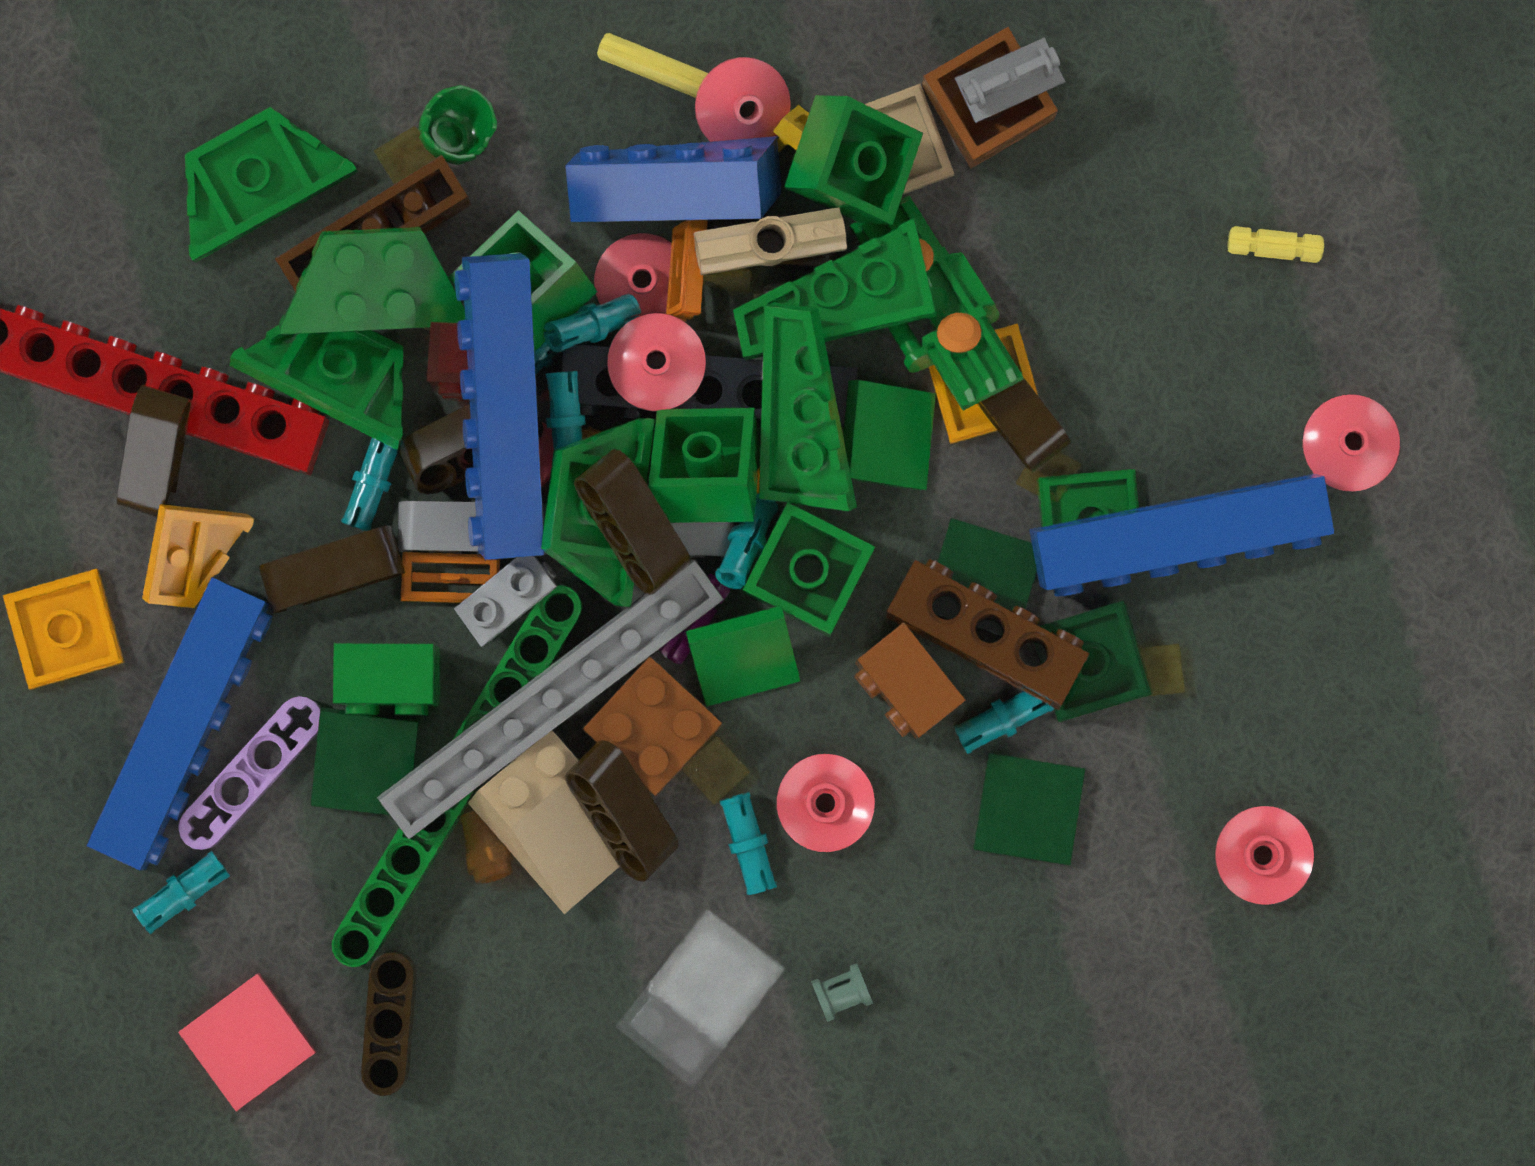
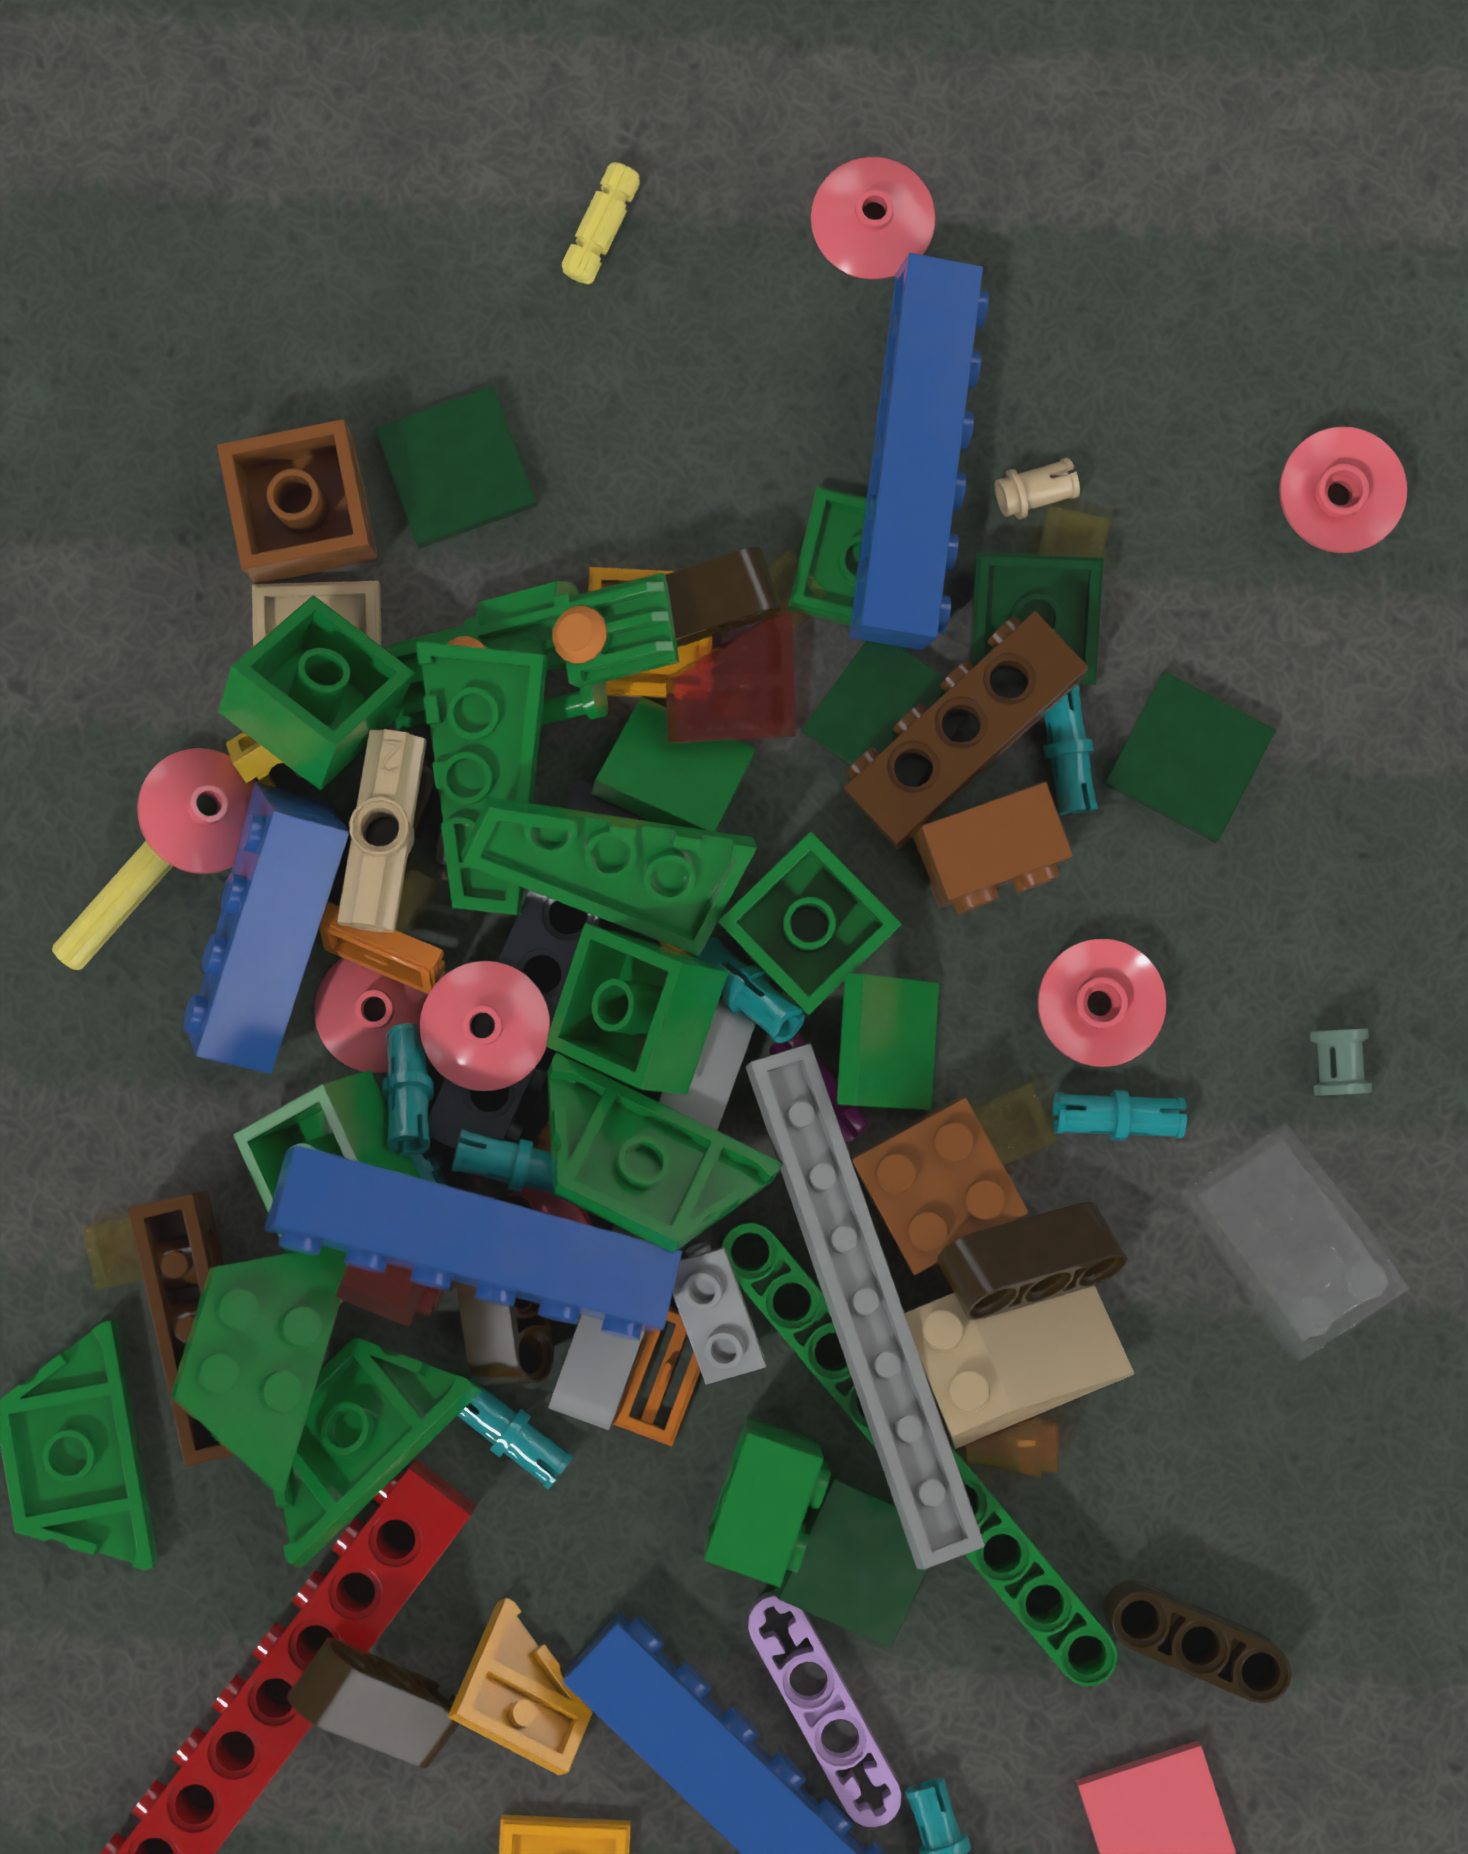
camera: 75 degrees left, 0 degrees up
(332, 569) = (604, 1522): dark brown beam -> none
(457, 124) = (98, 1174): green hair -> none
(632, 521) = (677, 1125): dark brown beam -> none
(963, 460) = (737, 688): none -> clear red wing
(1010, 79) = (284, 461): light grey hinge -> none
(1058, 201) = (455, 467): none -> dark green tile
(1188, 630) = (1036, 488): none -> tan pin

